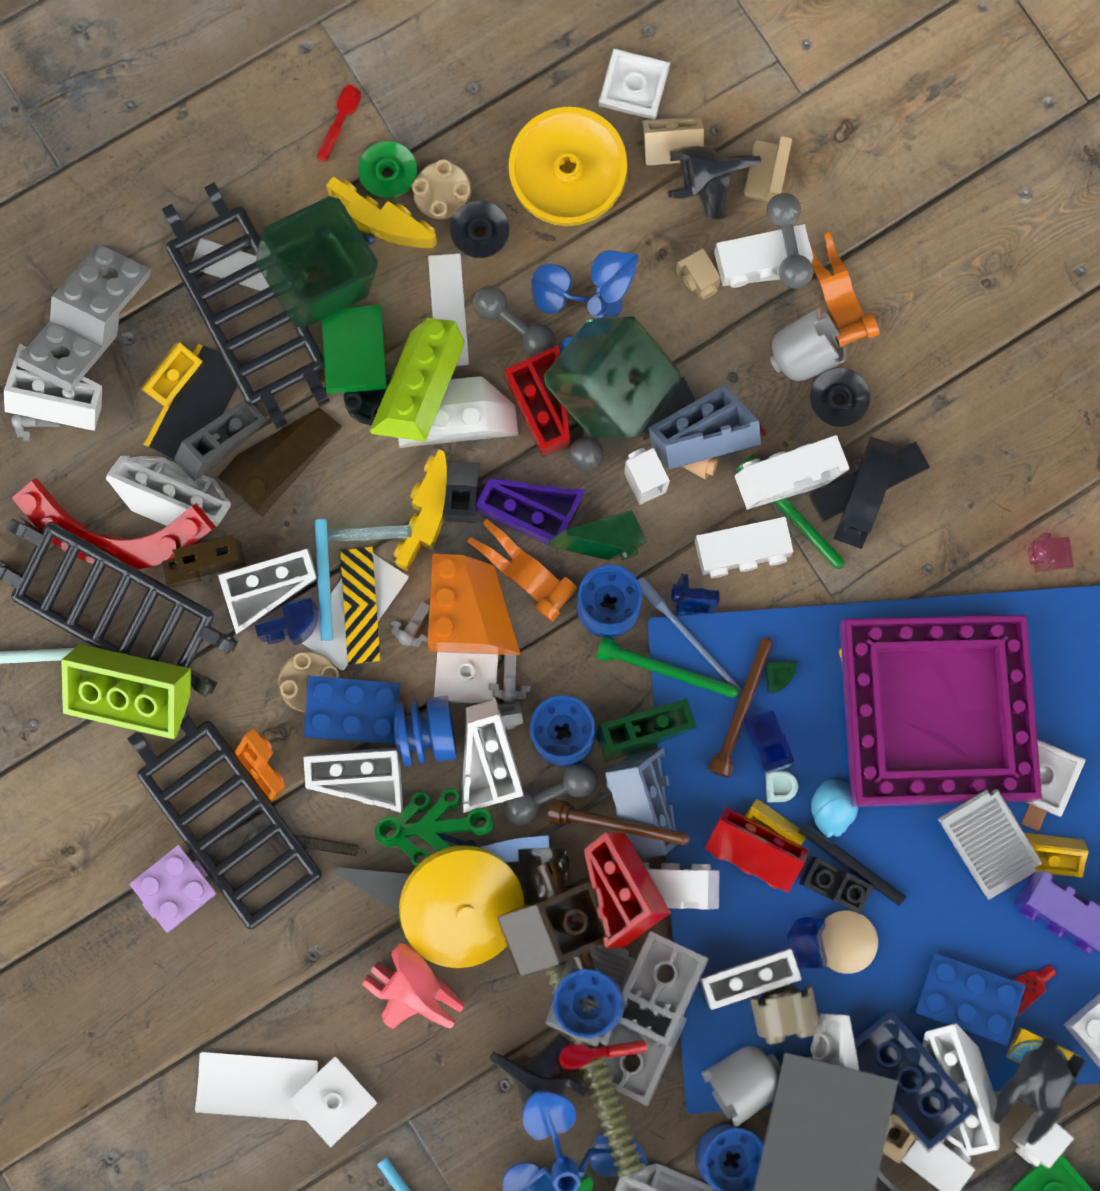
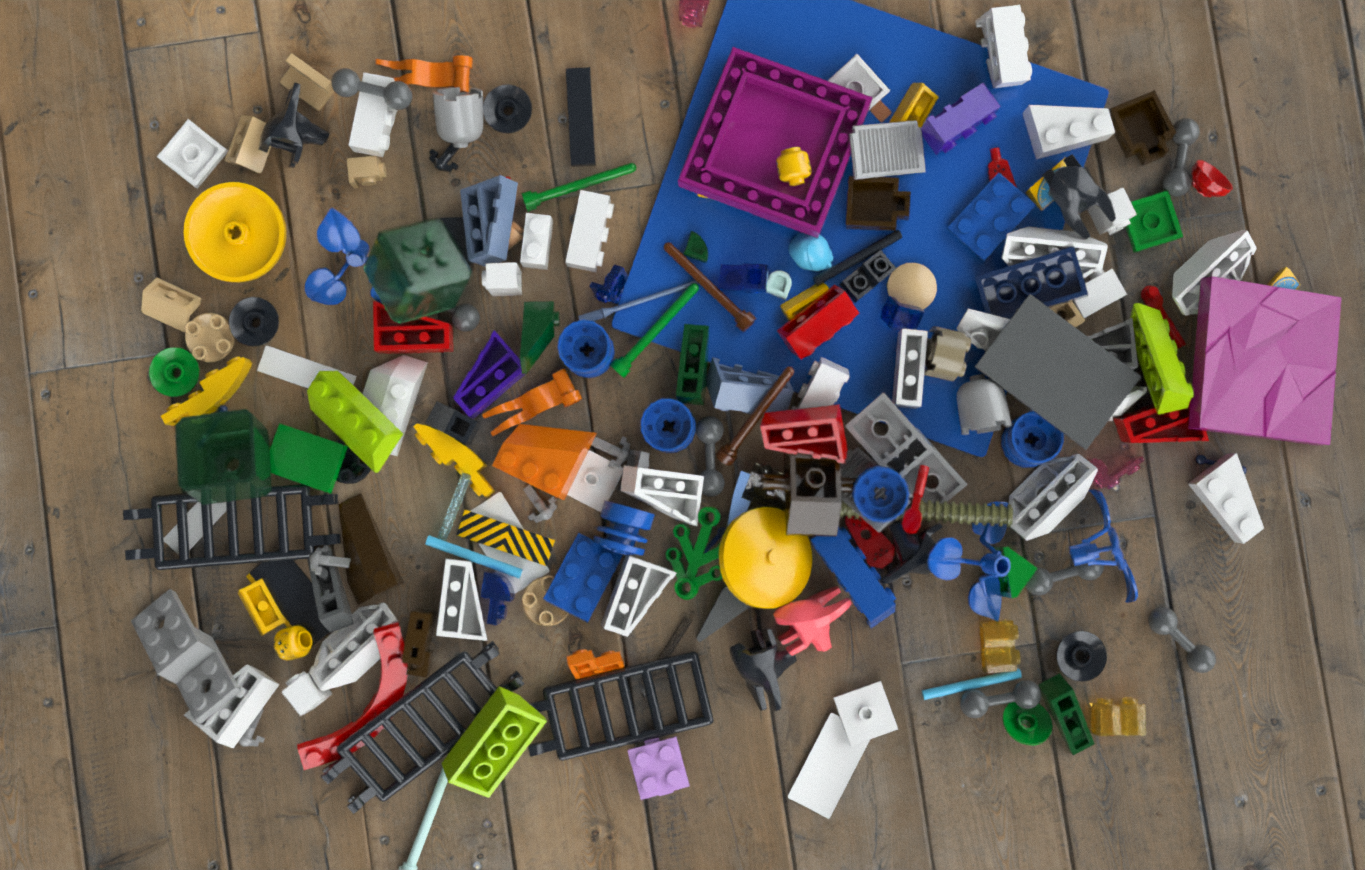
camera: 70 degrees left, 5 degrees up
(95, 461) = (304, 693): none -> white piece
(145, 424) = (292, 642): none -> yellow head
(249, 412) = (318, 559): none -> light grey piece
(335, 957) = (762, 667): none -> black piece
(346, 105) = (108, 381): red piece -> none
(459, 131) = (169, 303): none -> tan panel
(483, 1020) = (855, 576): none -> blue wedge
(491, 303) = (317, 338): dark grey piece -> none
(529, 1025) = (871, 545): none -> red piece
(706, 494) = (536, 241): none -> white piece
(746, 352) = (442, 162): none -> black piece
(791, 472) = (549, 169): white wedge -> none
(867, 492) = (589, 120): black arch -> none
(920, 742) = (793, 166): none -> yellow head
(923, 858) = (876, 203): none -> dark brown piece

